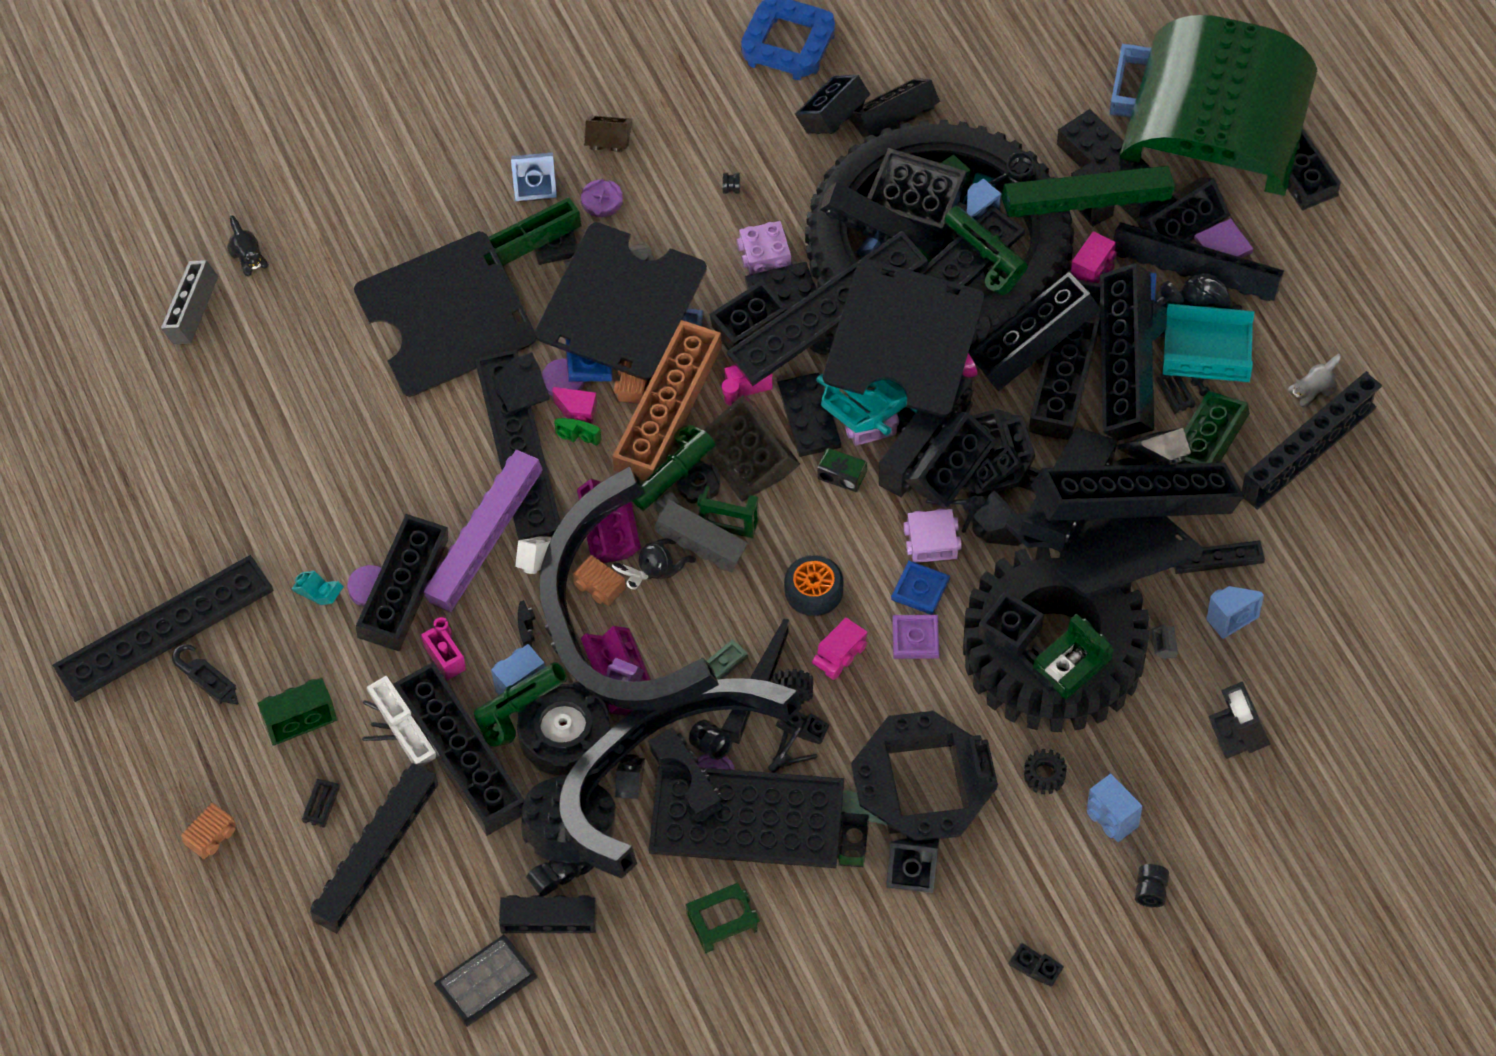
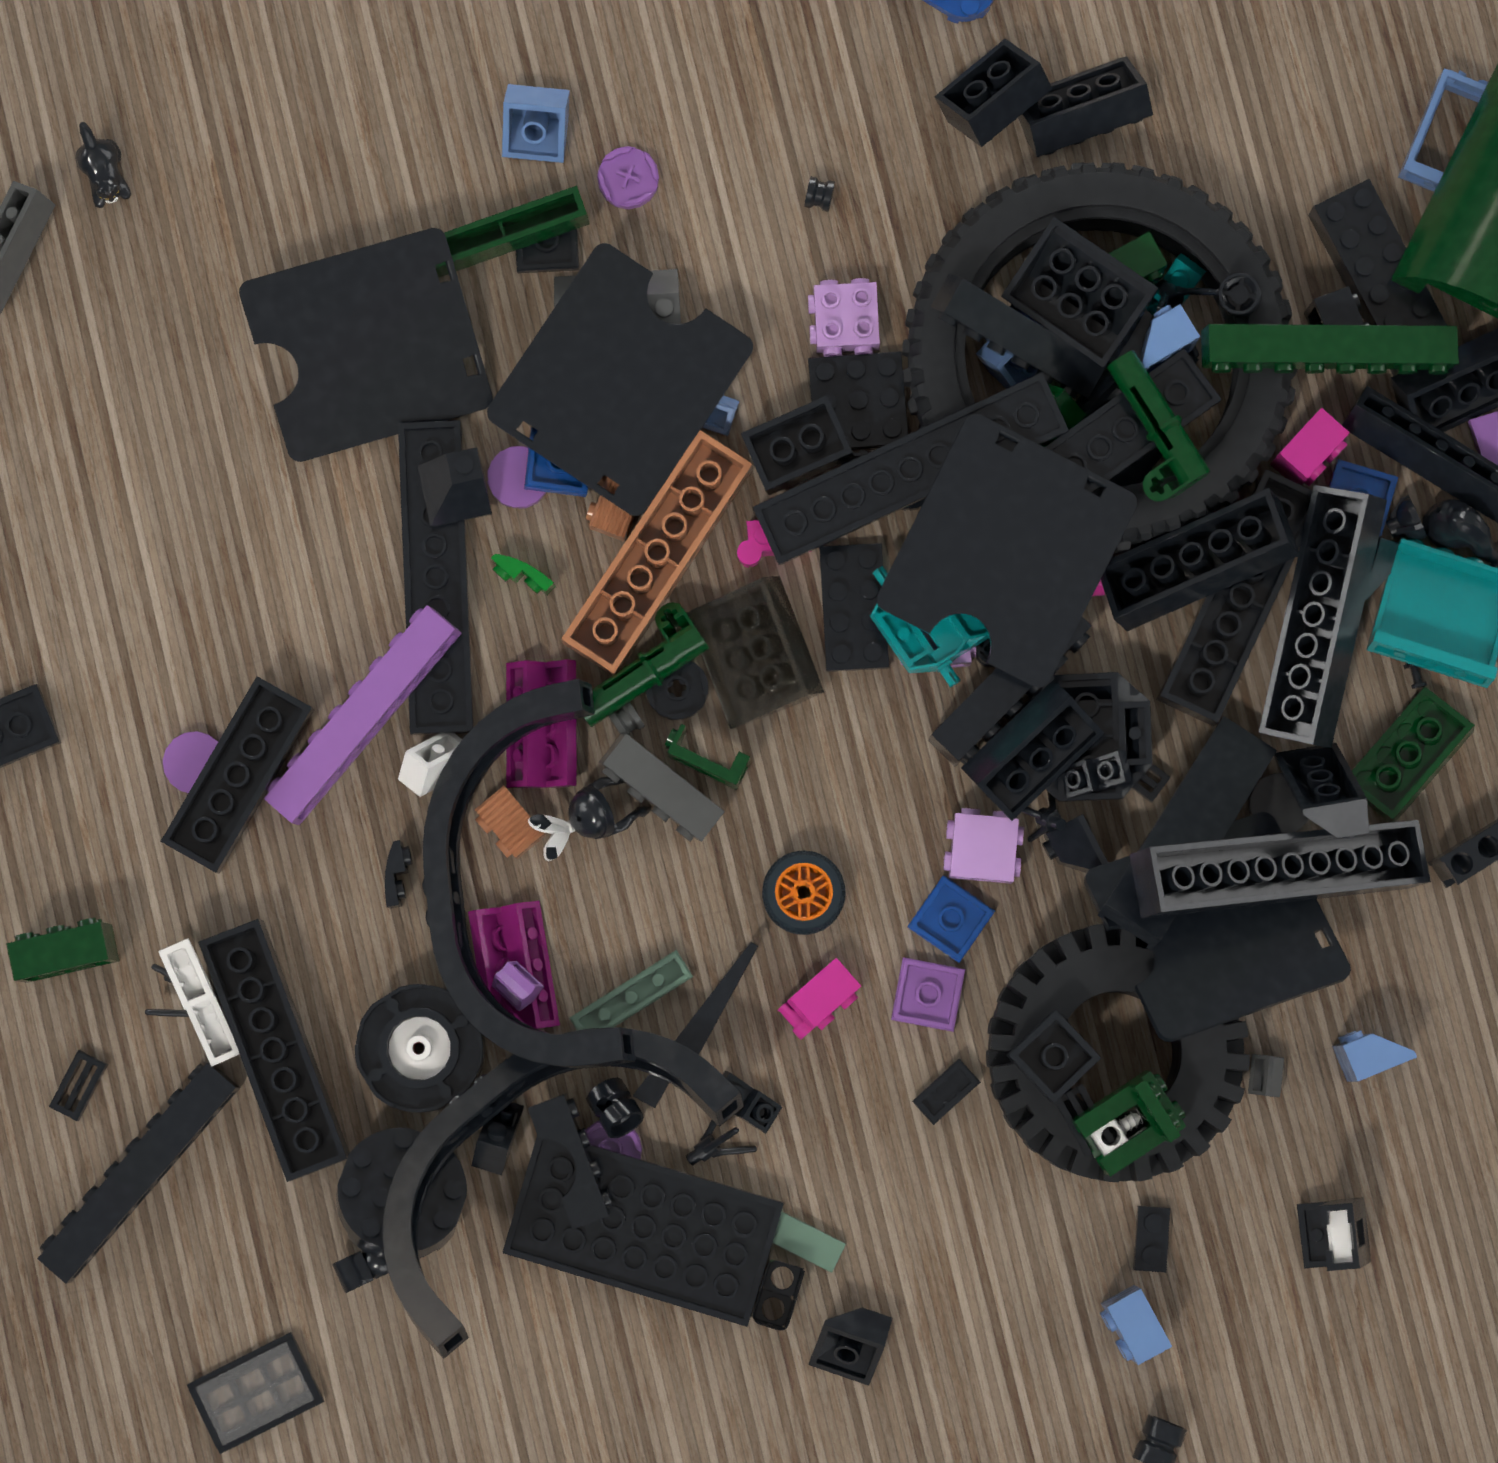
camera: 10 degrees right, 25 degrees up
(316, 589) = (121, 753): teal slope -> none
(443, 650) = (276, 891): dark pink hinge -> none
(503, 705) = (333, 1014): dark green piece -> none
(516, 668) = (372, 959): medium blue brick -> none
(547, 914) = (350, 1319): black brick -> none
(576, 403) = (530, 532): dark pink slope -> none
(607, 132) = (657, 66): dark brown slope -> none
(709, 937) = (602, 1343): dark green panel -> none
(798, 681) = (741, 1049): black tyre -> none
(841, 470) = (879, 714): piece -> none
(923, 731) = (825, 1223): black hinge -> none
(943, 692) = (946, 1091): none -> black plate
(1047, 759) = (1076, 1247): black tyre -> none
(1112, 758) = (1151, 1239): none -> black plate
(1181, 404) = (1366, 677): black tile -> none
(1225, 557) = (1387, 954): black tile -> none

